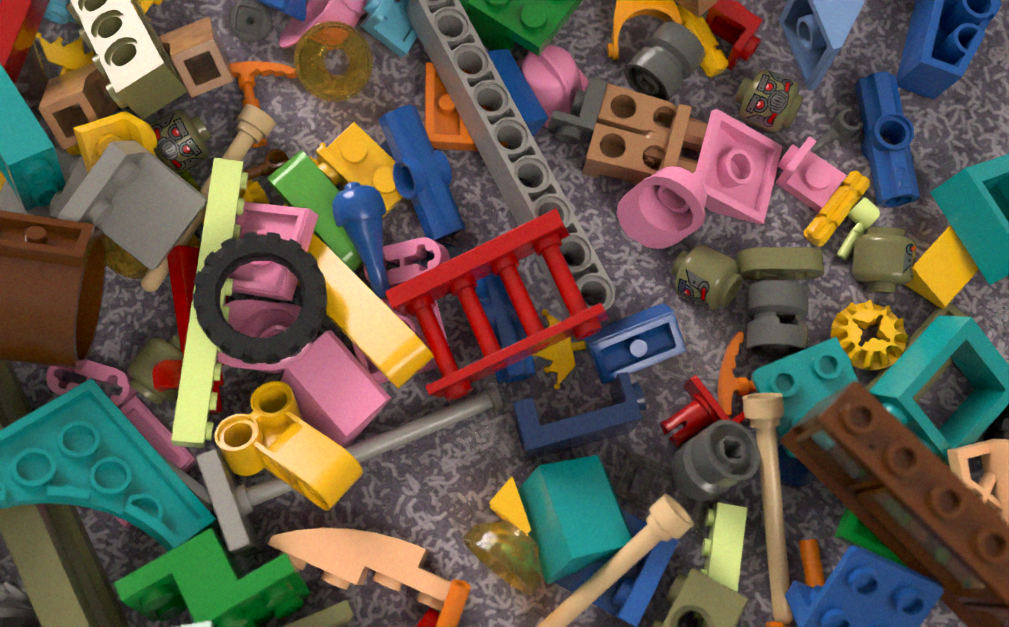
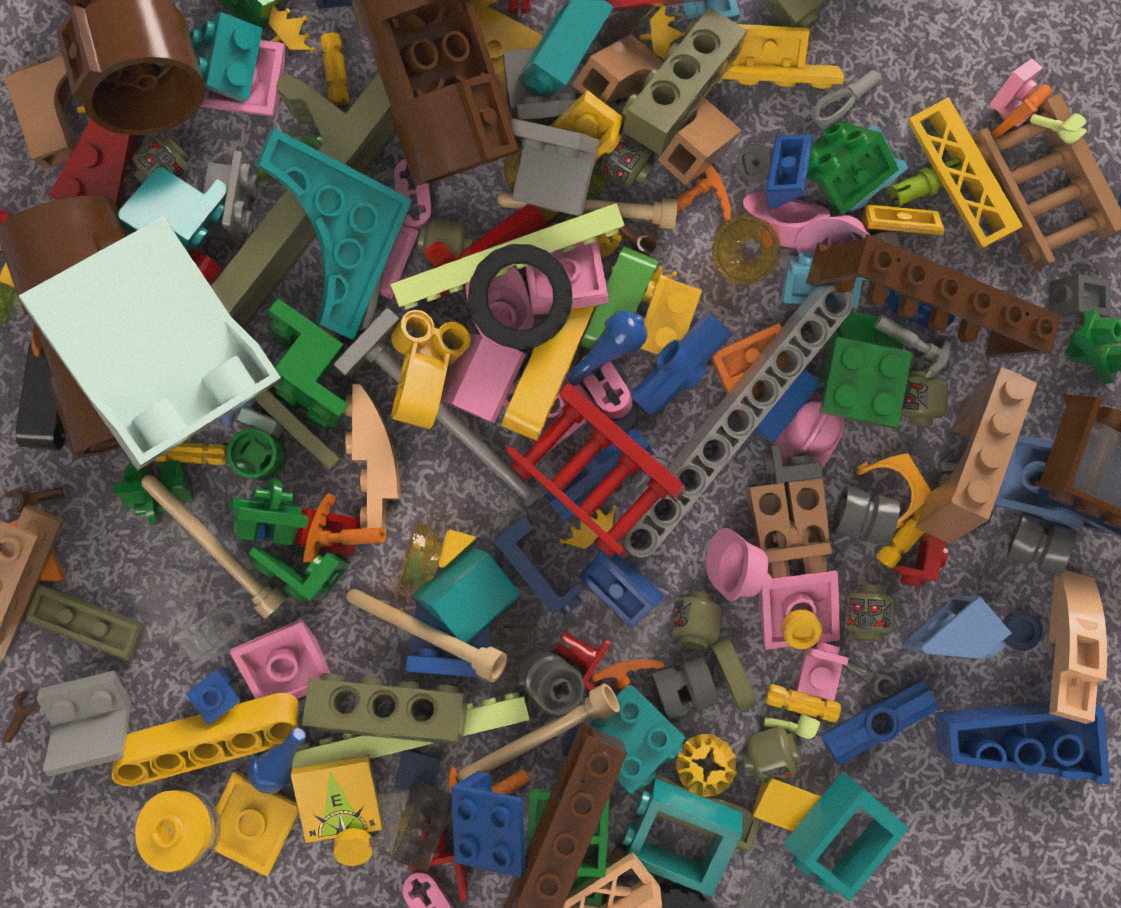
camera: 60 degrees right, 10 degrees up
(758, 173) = (801, 629): none -> yellow tile

